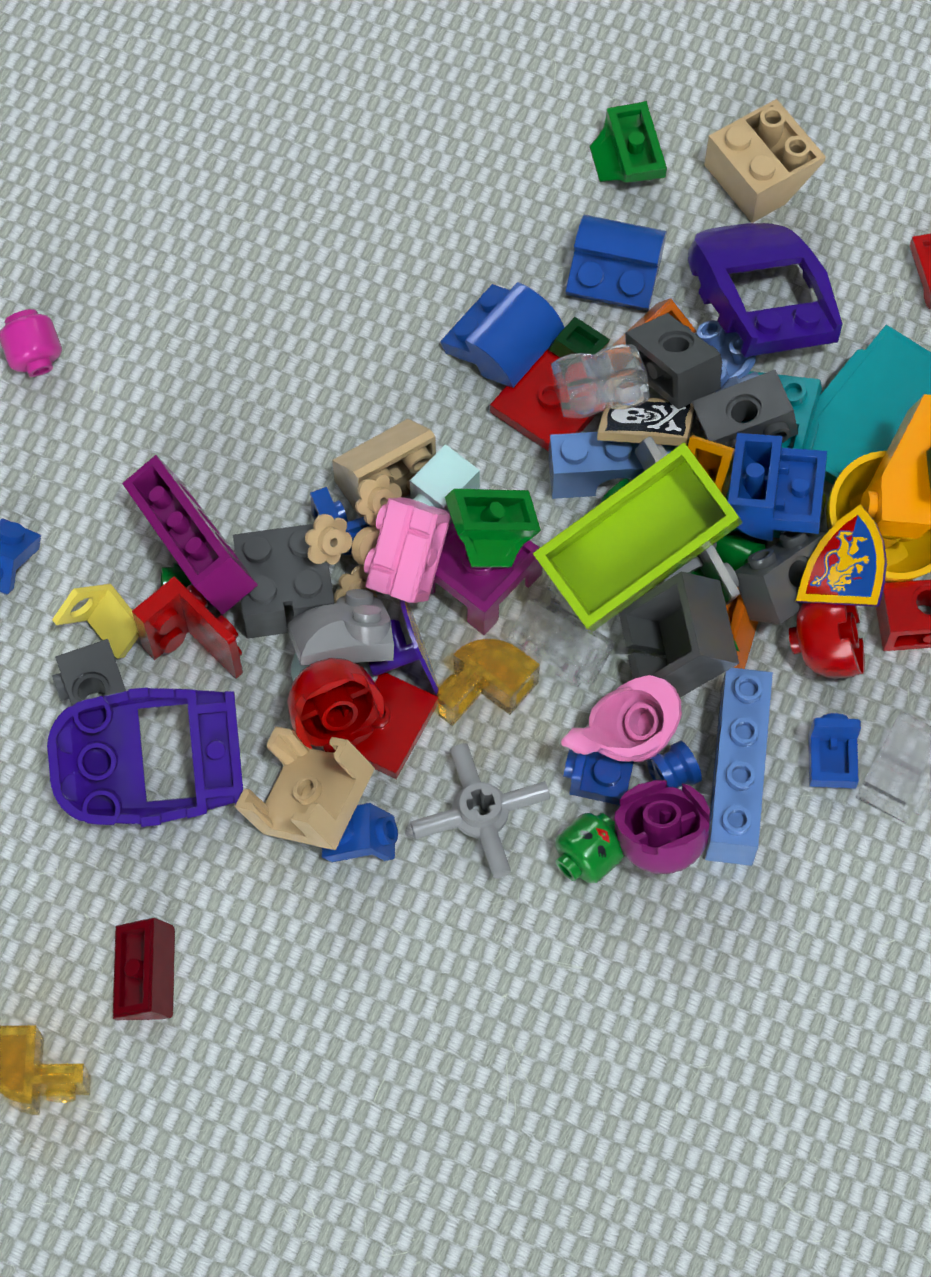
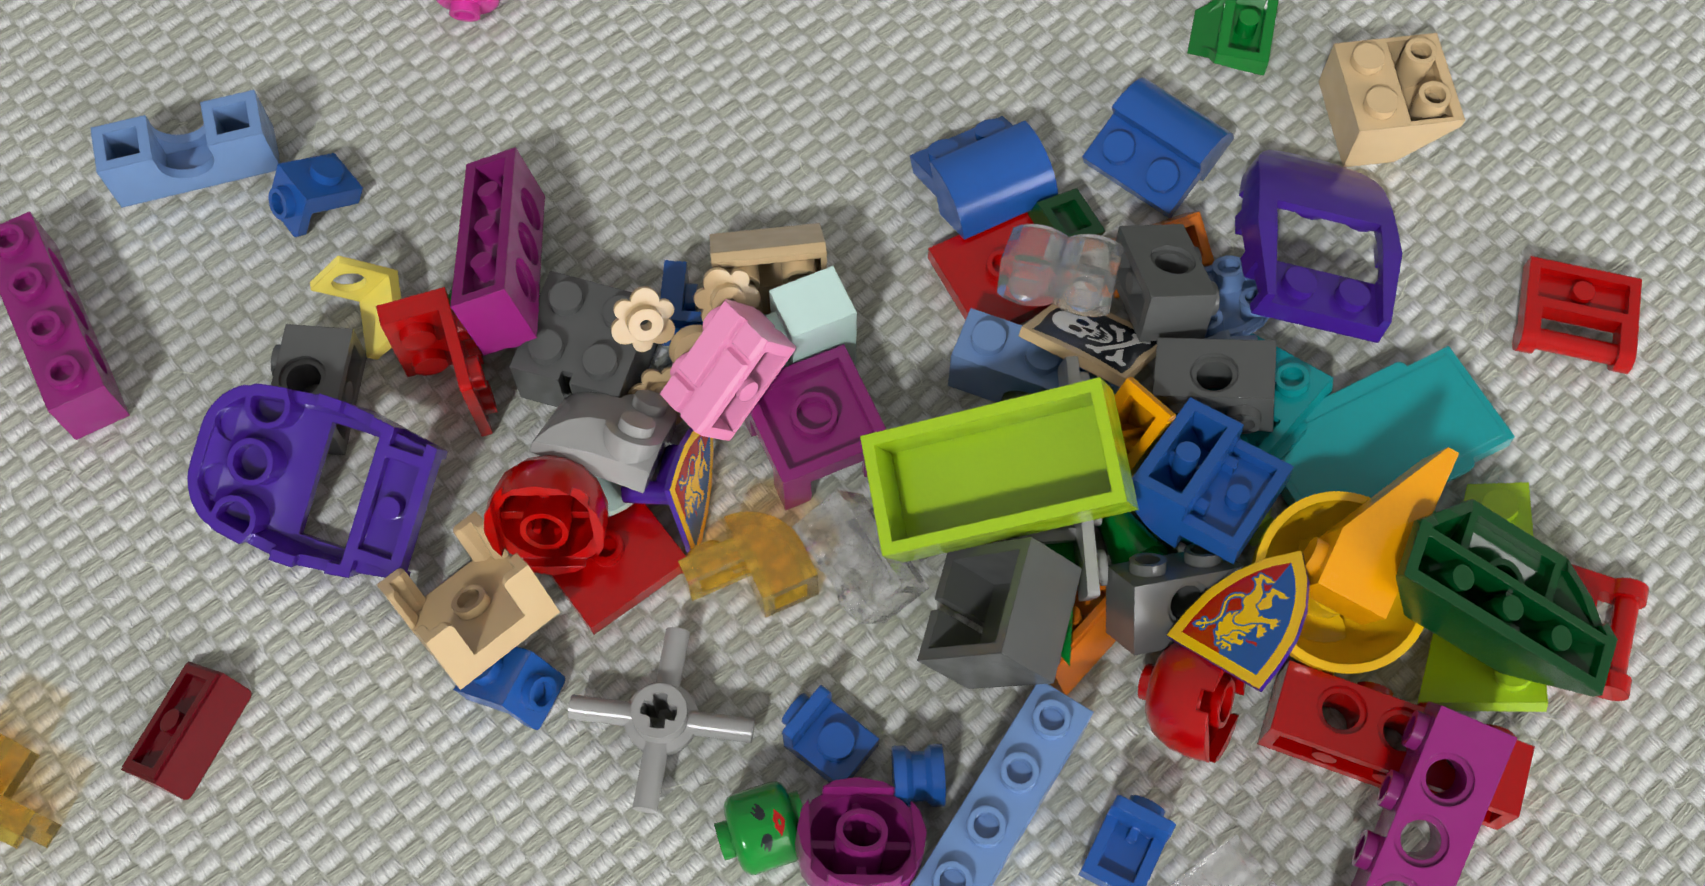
camera: 25 degrees right, 0 degrees up
(493, 523) = (839, 382): green slope -> none
(630, 721) = (883, 694): bright pink piece -> none

